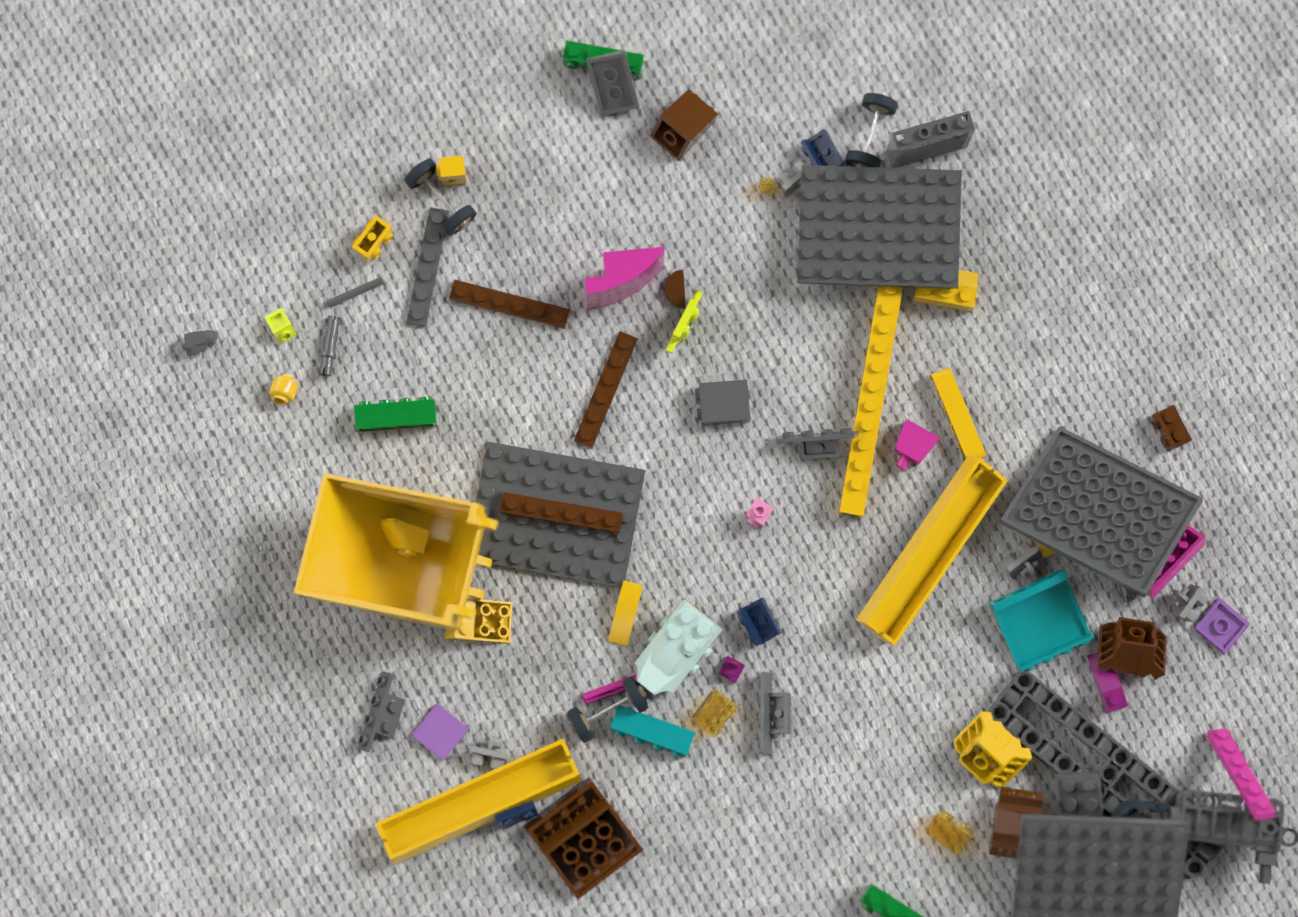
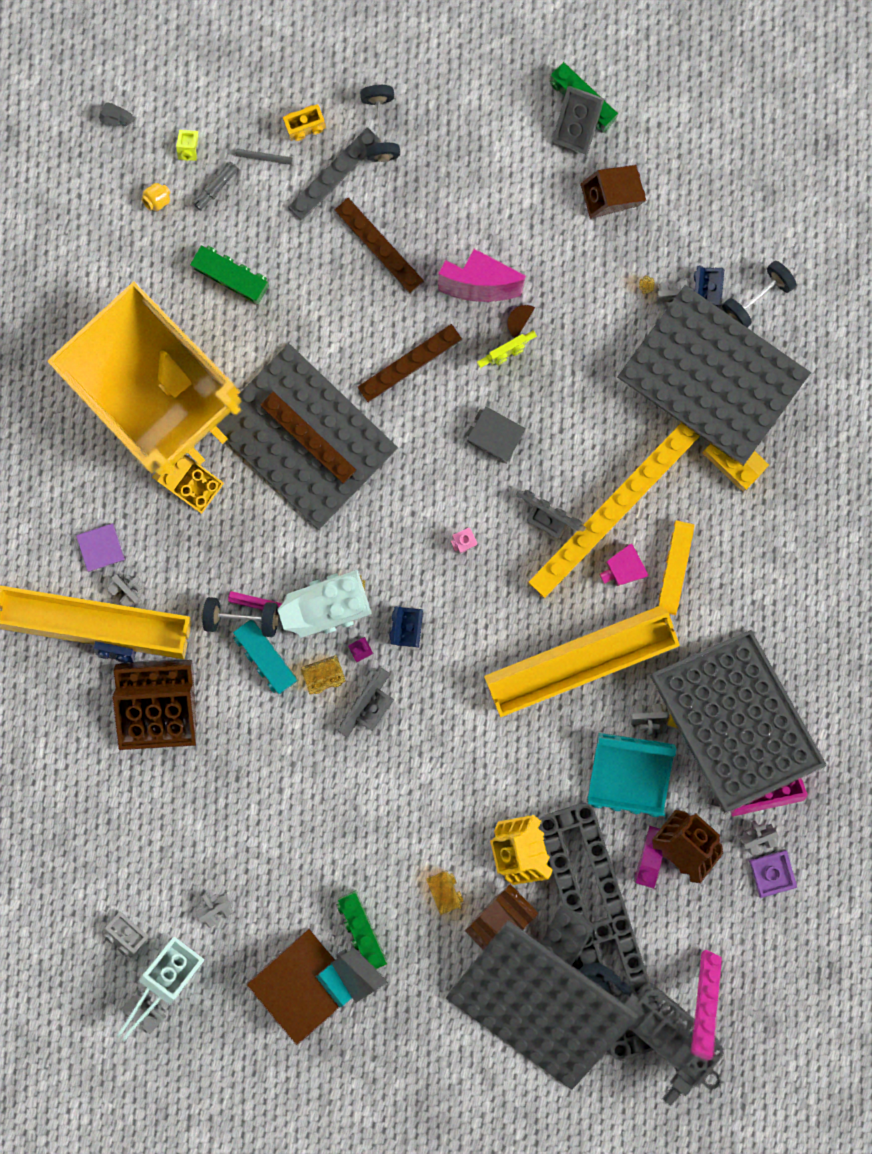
camera: 35 degrees right, 5 degrees up
(383, 714) = (65, 504): dark grey bracket -> none
(451, 170) = (402, 108): yellow brick -> none
(625, 613) = (306, 550): yellow slope -> none
(930, 139) = (802, 331): dark grey window -> none
(1171, 428) = (840, 690): reddish brown bracket -> none

